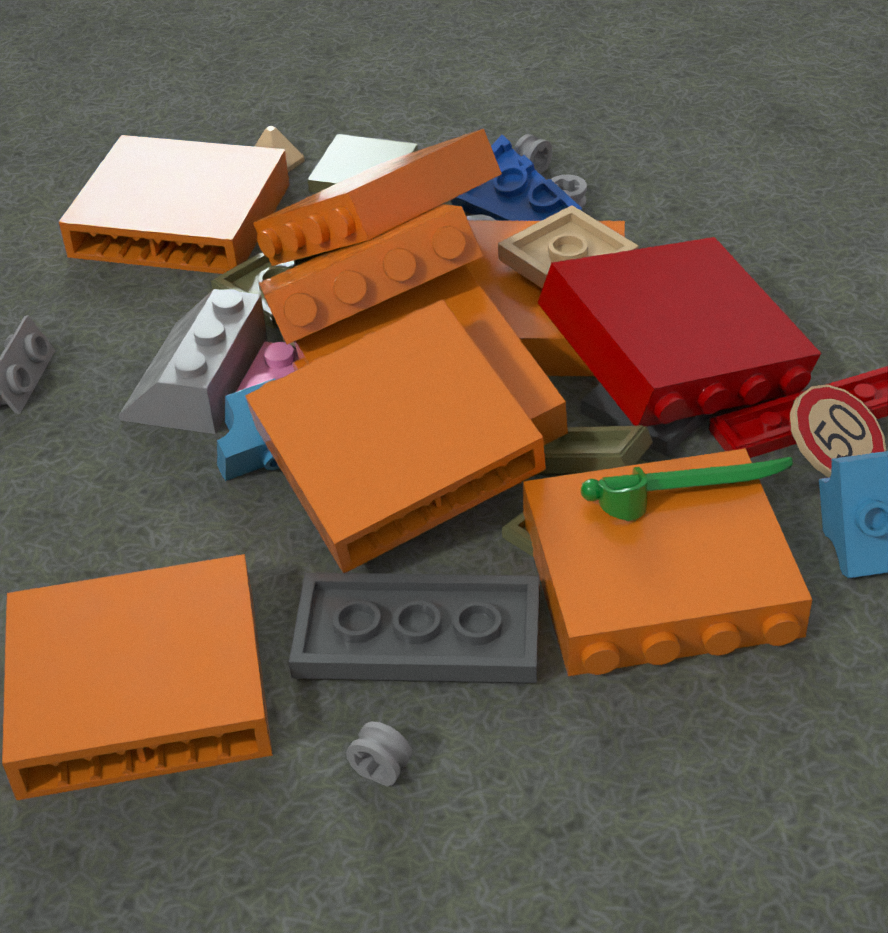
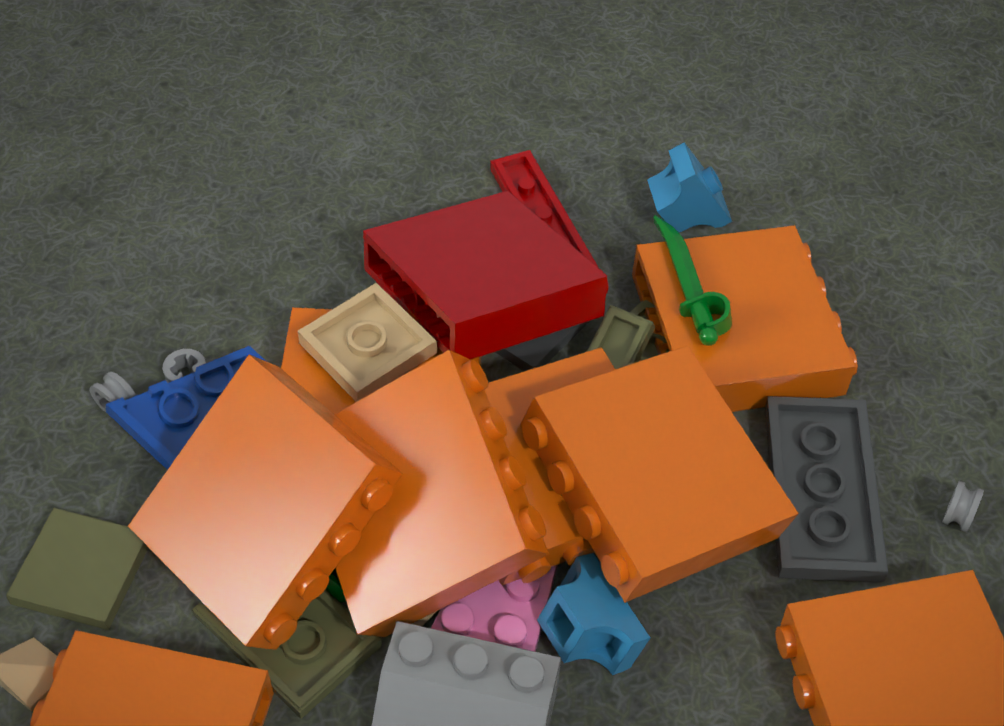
camera: 95 degrees left, 10 degrees up
(833, 425) = (589, 201): piece -> none

